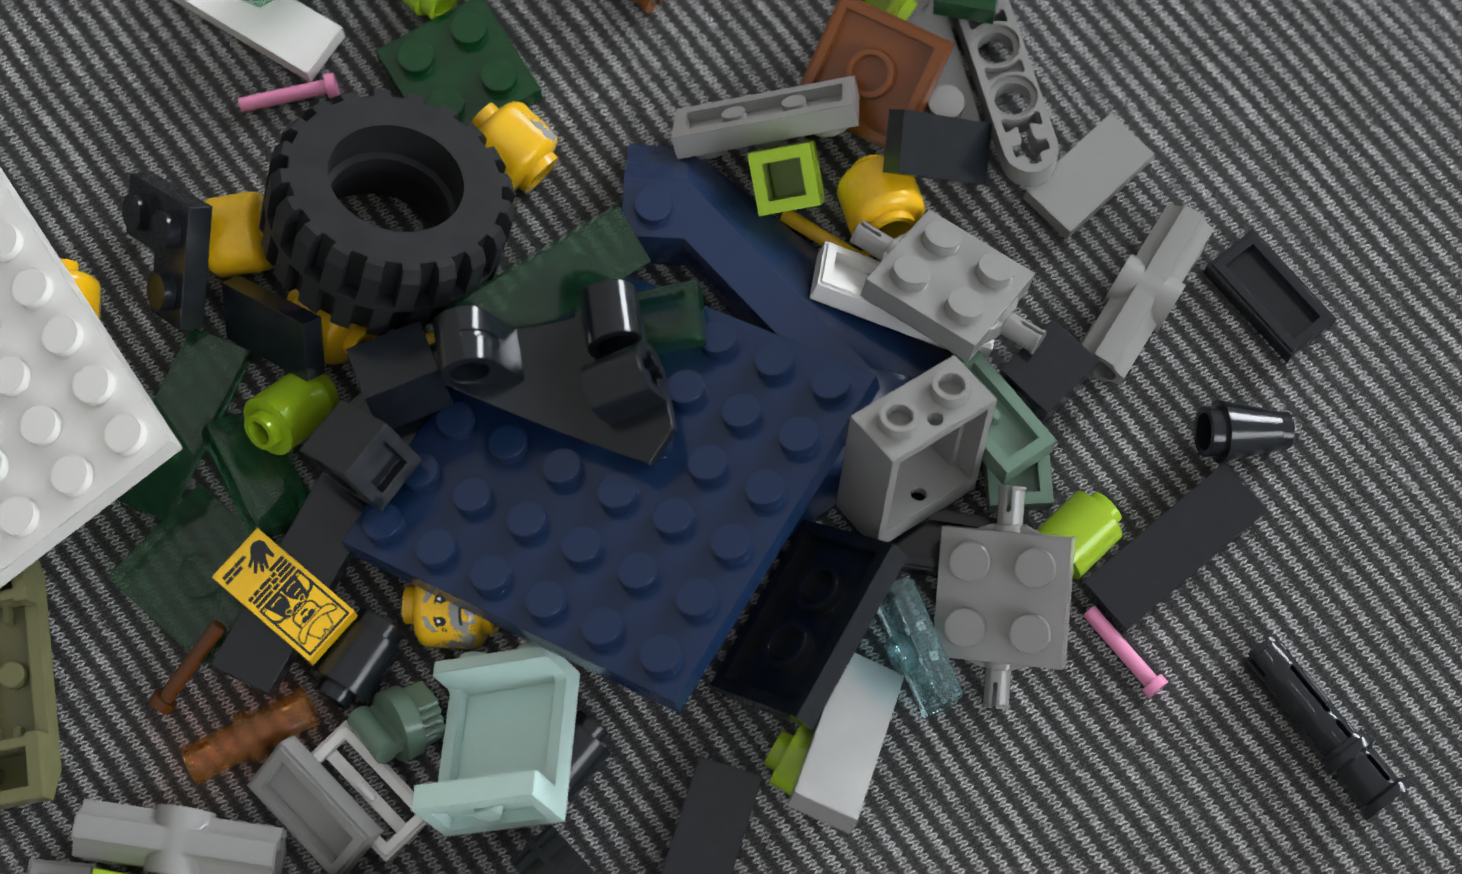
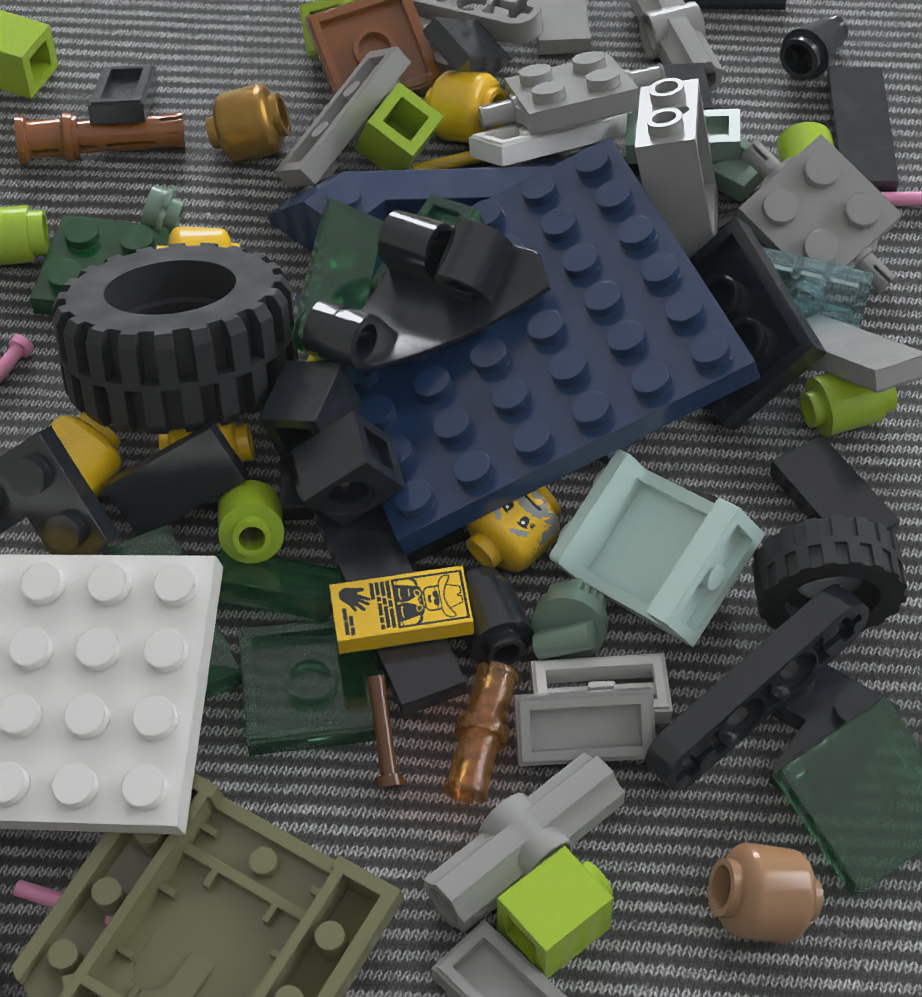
camera: 45 degrees left, 20 degrees down
(552, 64) = (163, 208): none -> sand green plate
(702, 46) = (248, 123): none -> pearl gold head

